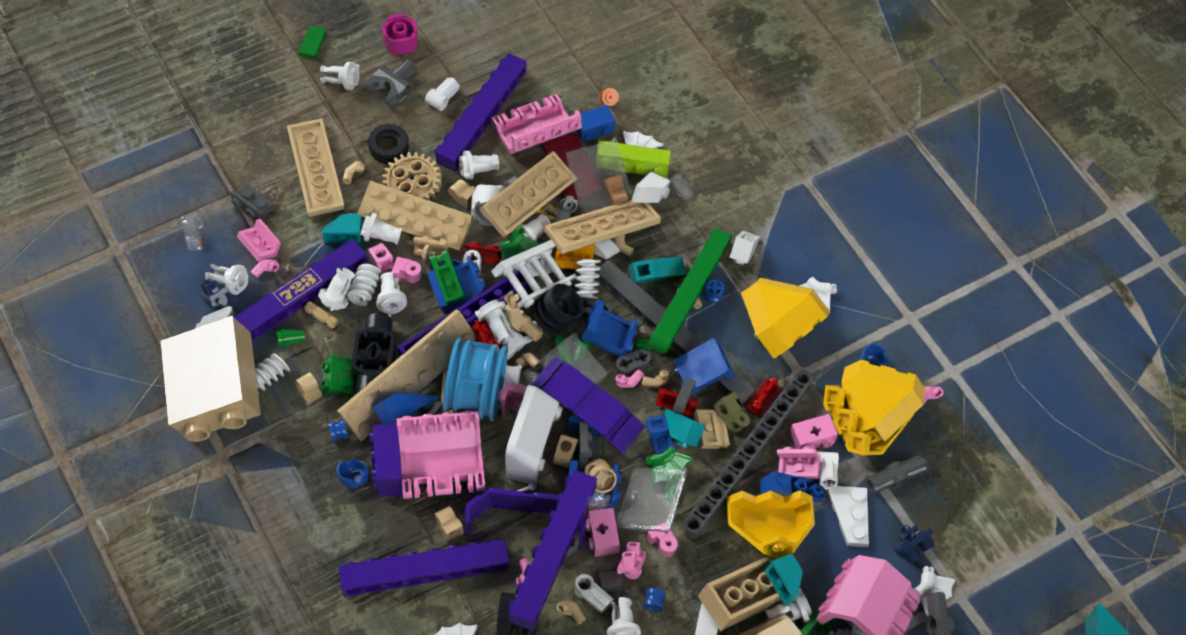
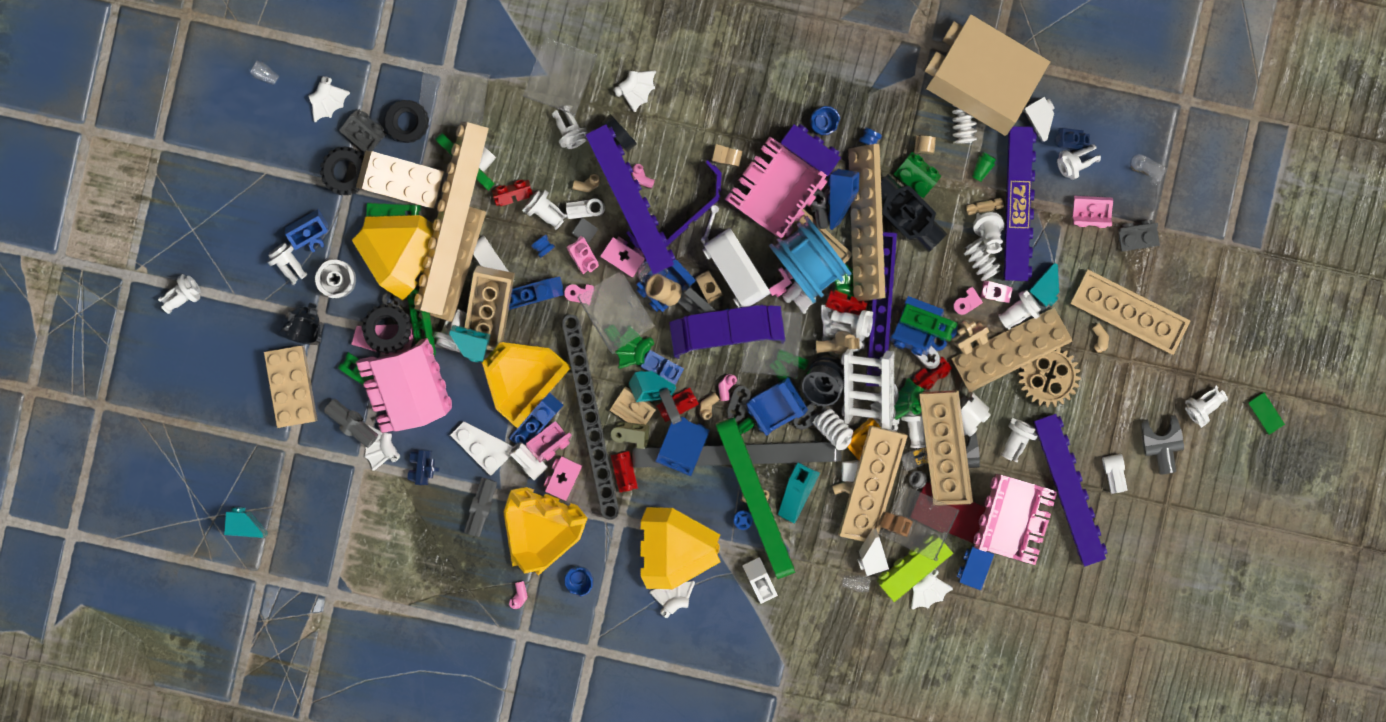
camera: 135 degrees right, 30 degrees up
(265, 265) = (1068, 198): bright pink arm -> none
(388, 131) = (1117, 388): black tyre -> none
(390, 299) = (953, 270): white piece -> none
(400, 34) = (1215, 482): dark pink brick -> none
(423, 567) = (706, 110): dark purple brick -> none
(462, 193) = (1002, 406): tan leg -> none
(528, 360) = (805, 326): tan arm -> none
(609, 96) = (993, 605): orange wheel -> none
(690, 569) = (536, 292): none -> blue slope
(881, 398) = (543, 551): yellow panel -> none

